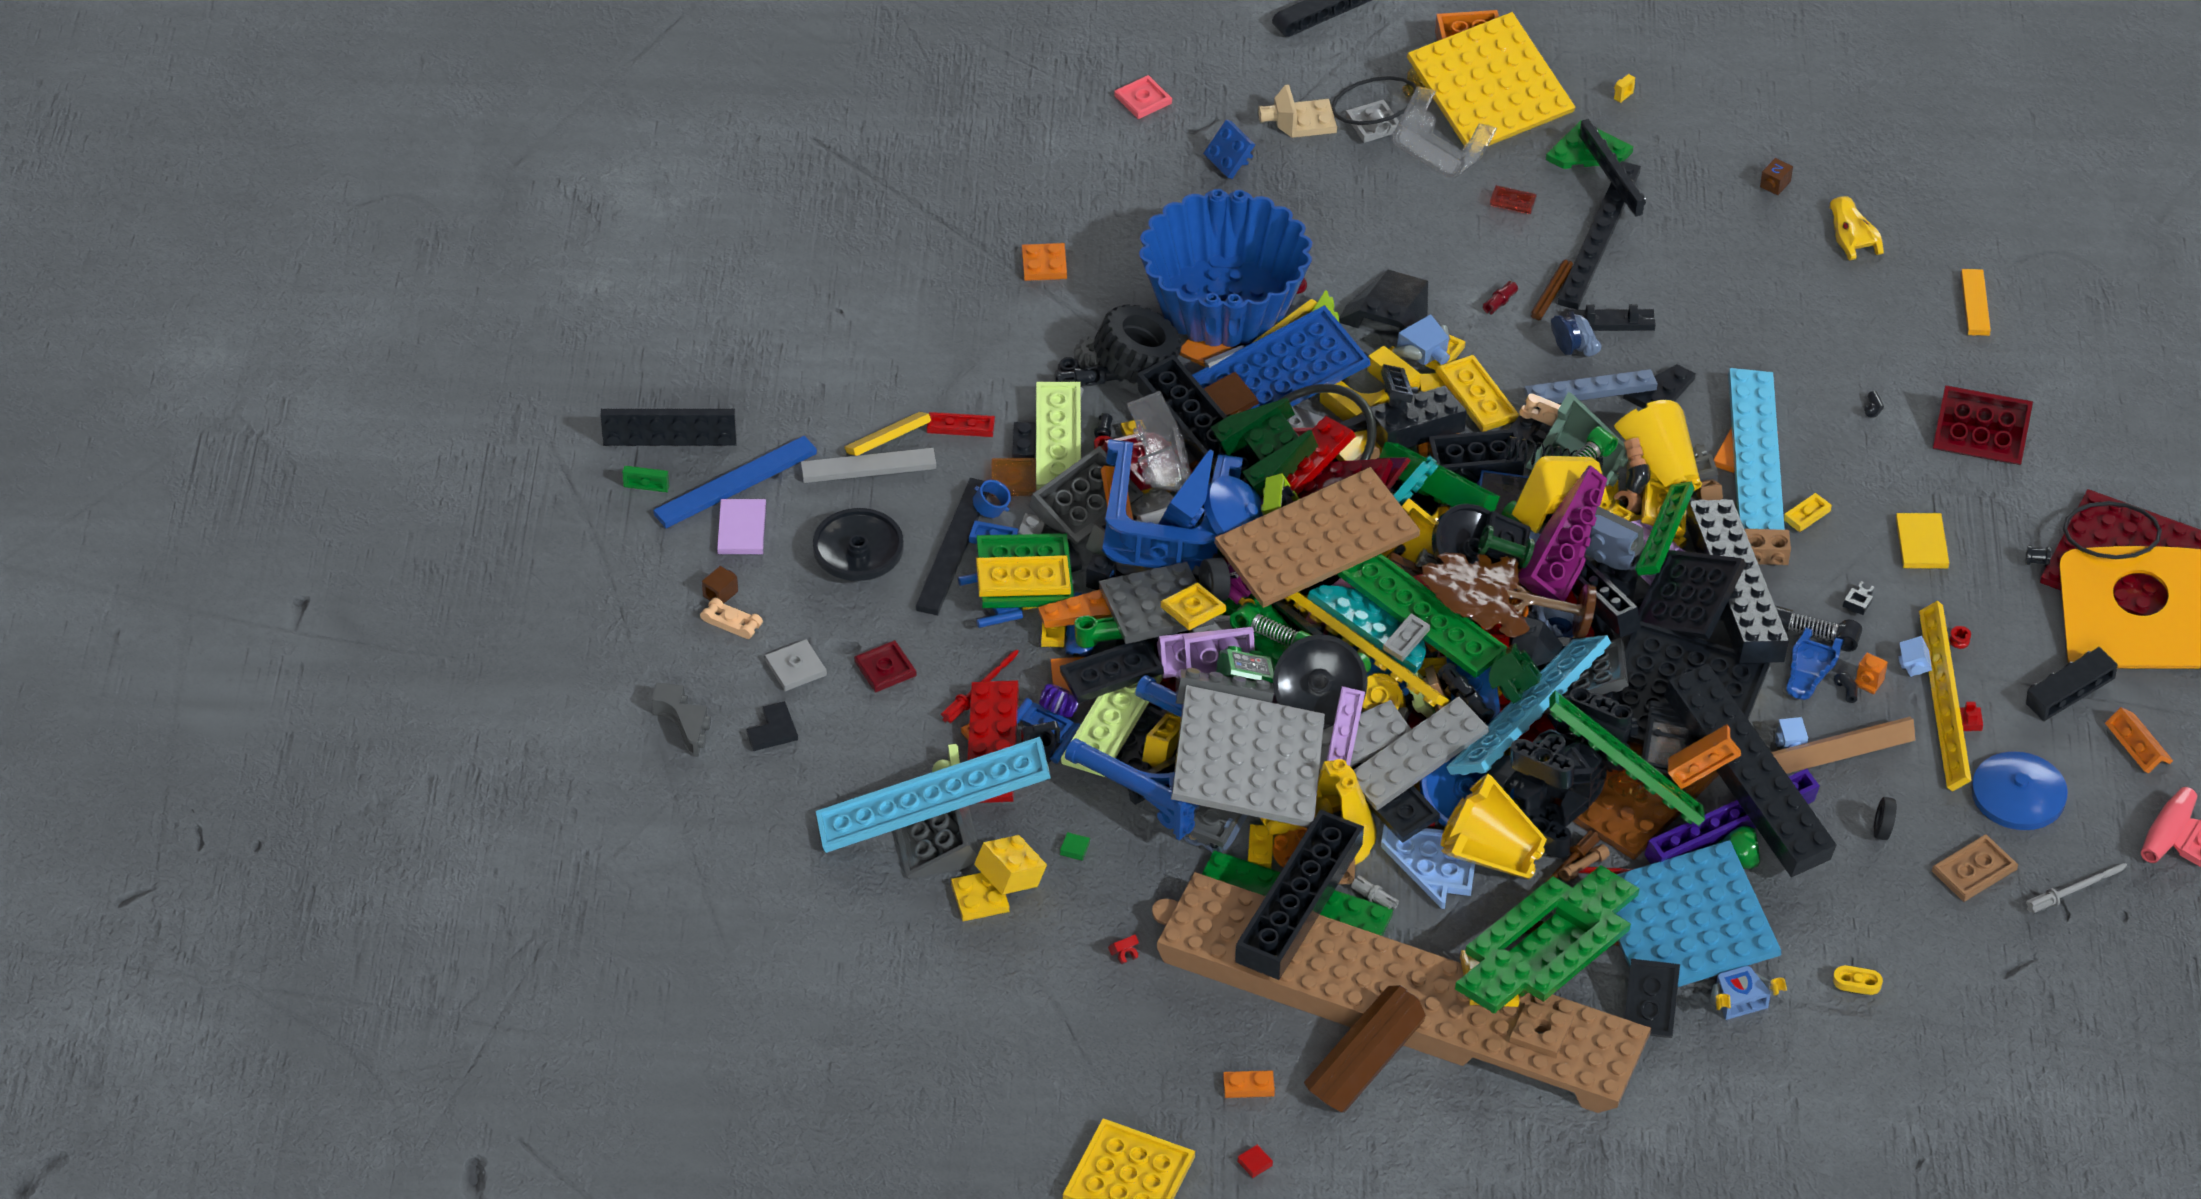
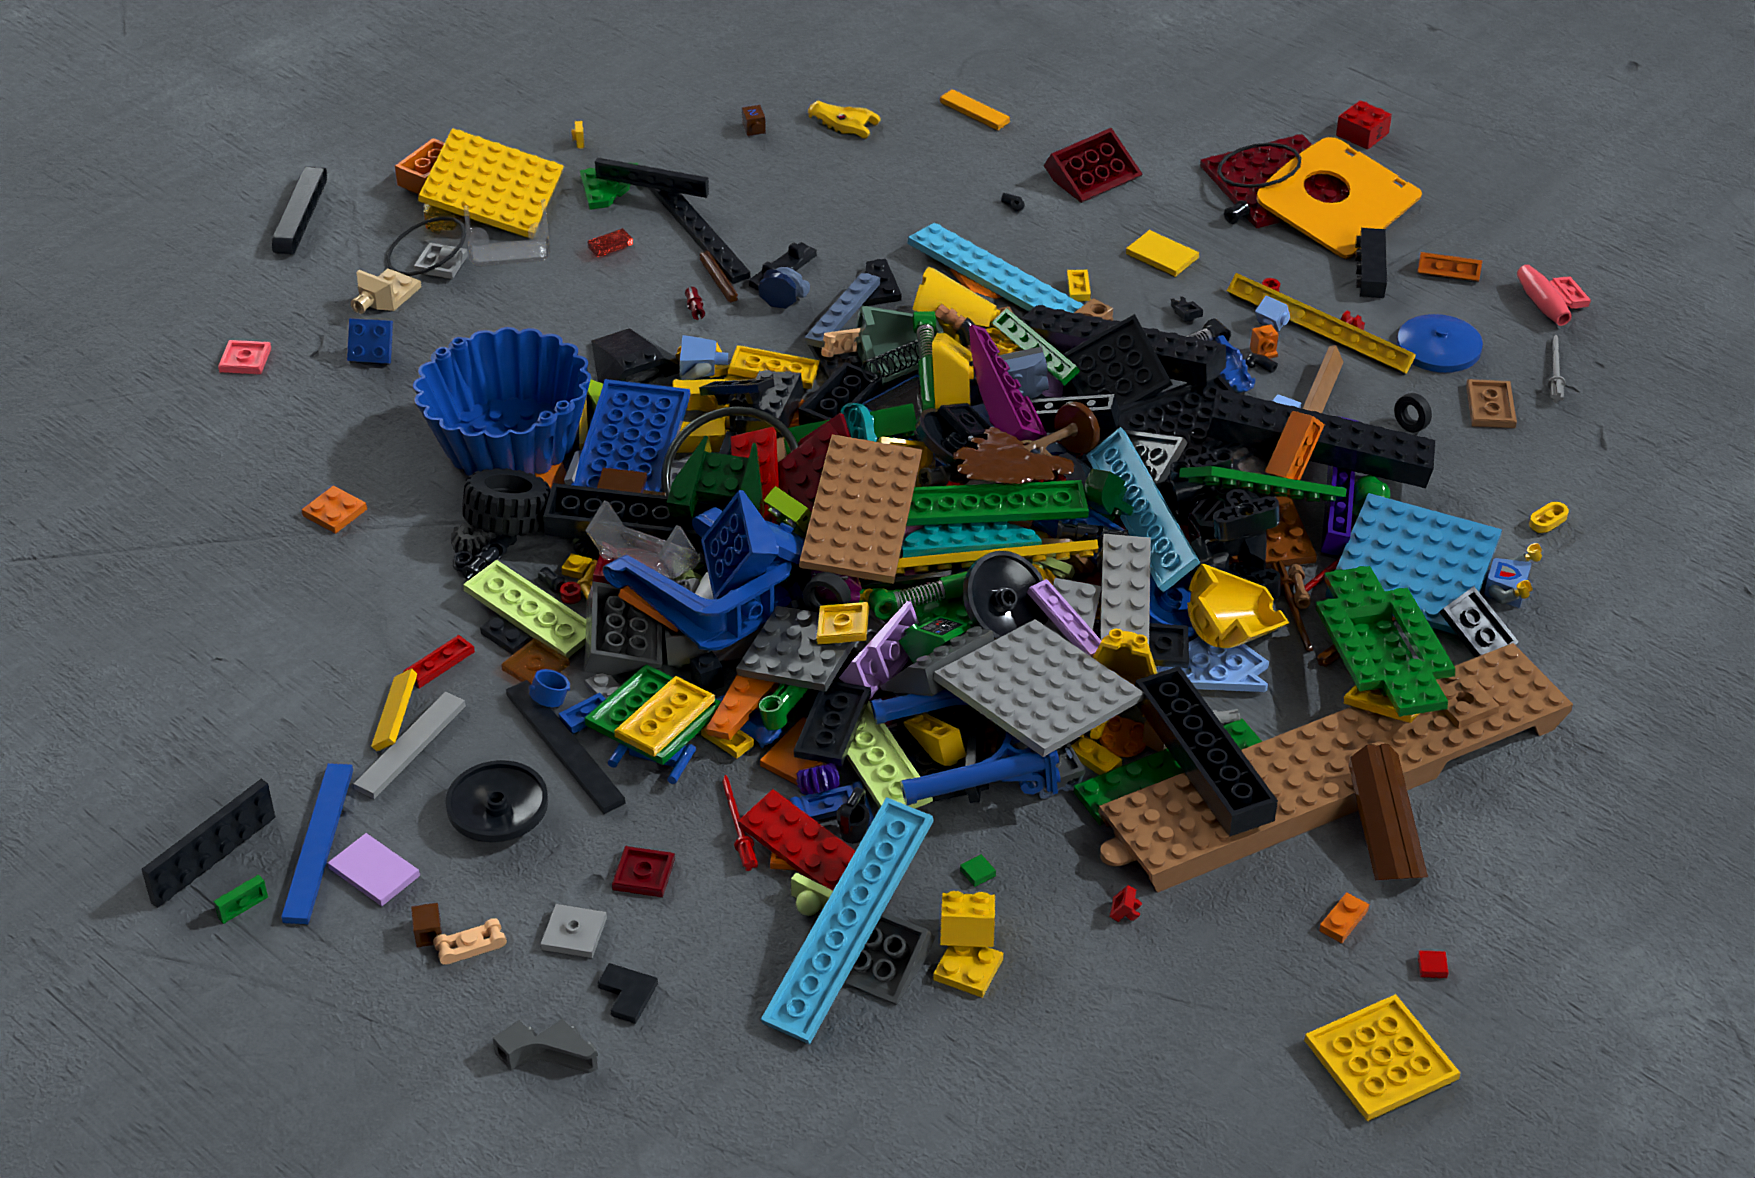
camera: 50 degrees left, 5 degrees down
(1406, 637) = (1016, 523): light grey plate -> none
(1524, 551) = (969, 424): dark green hose -> none

